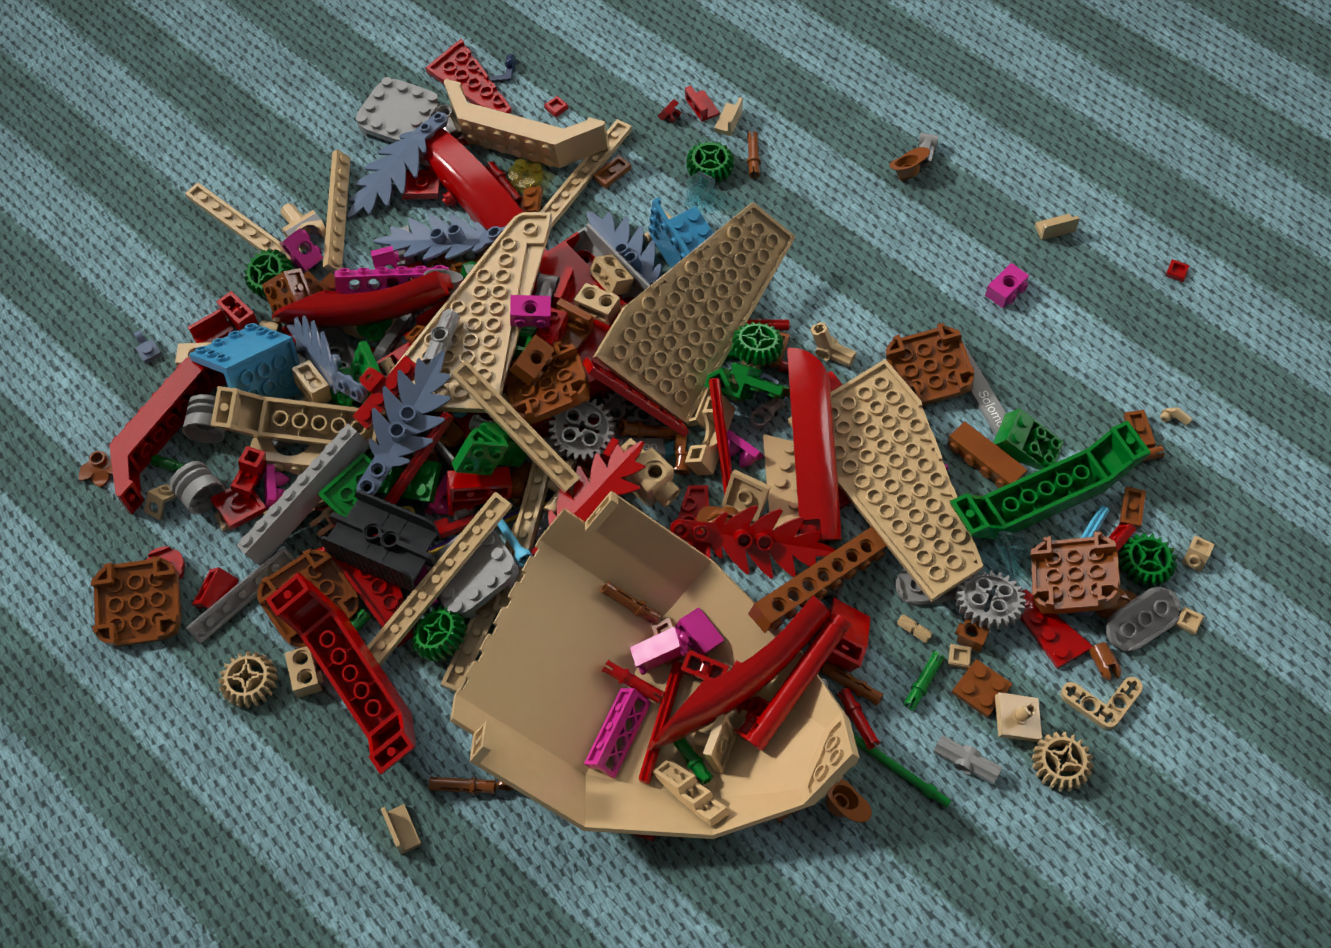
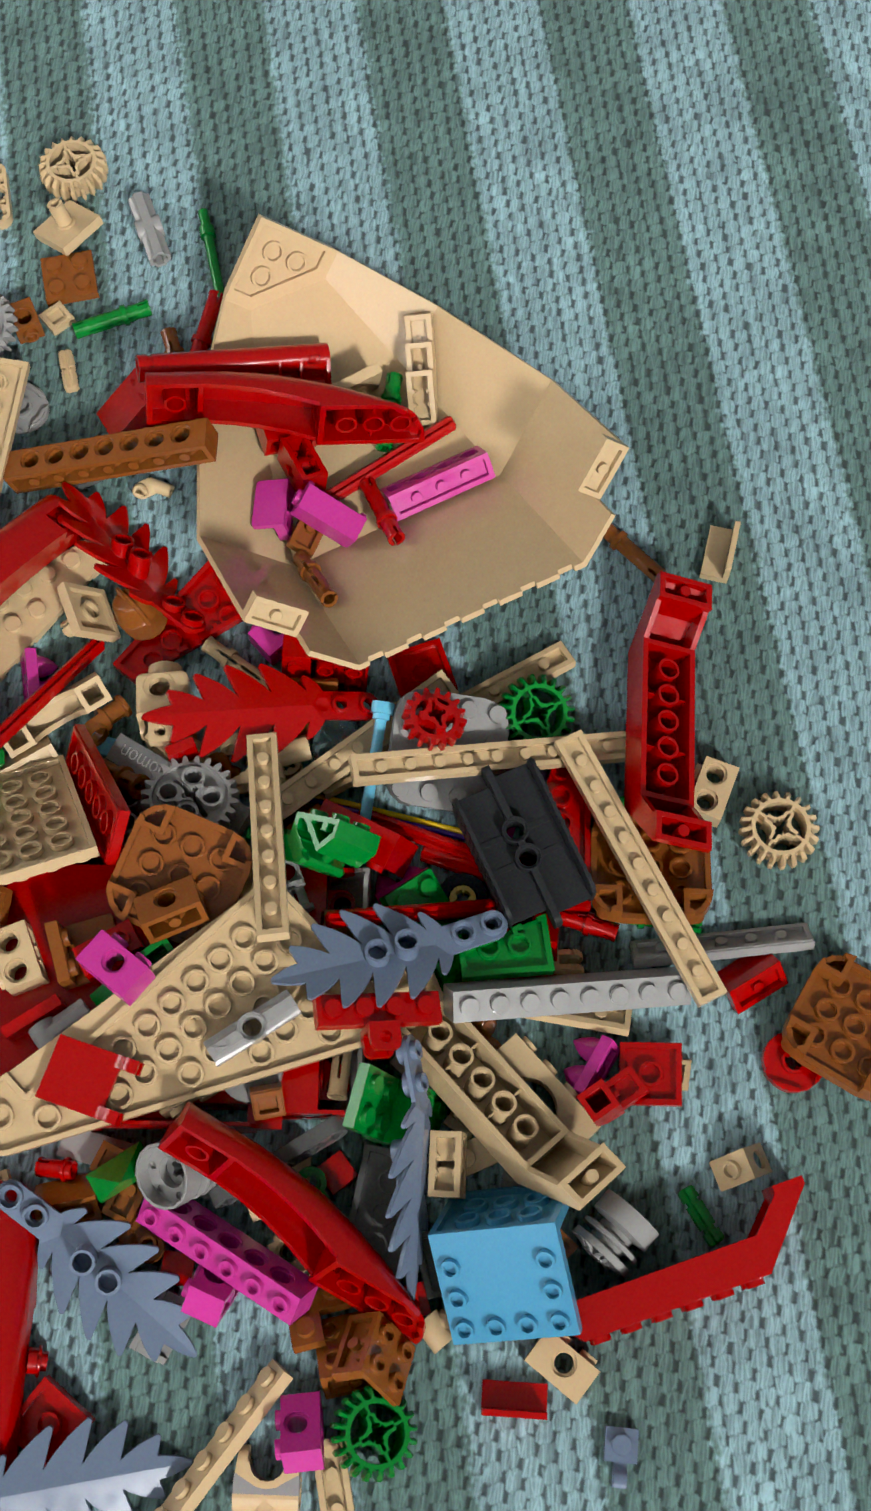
camera: 140 degrees left, 10 degrees up
(99, 471) = (799, 1283): dark orange plate -> none
(195, 486) = (690, 1130): light grey wheel -> none
(236, 311) = (462, 1394): red brick -> none
(336, 591) = (640, 869): none -> tan plate
(485, 555) = (432, 721): none -> red gear
(501, 266) = (84, 1078): none -> red flag

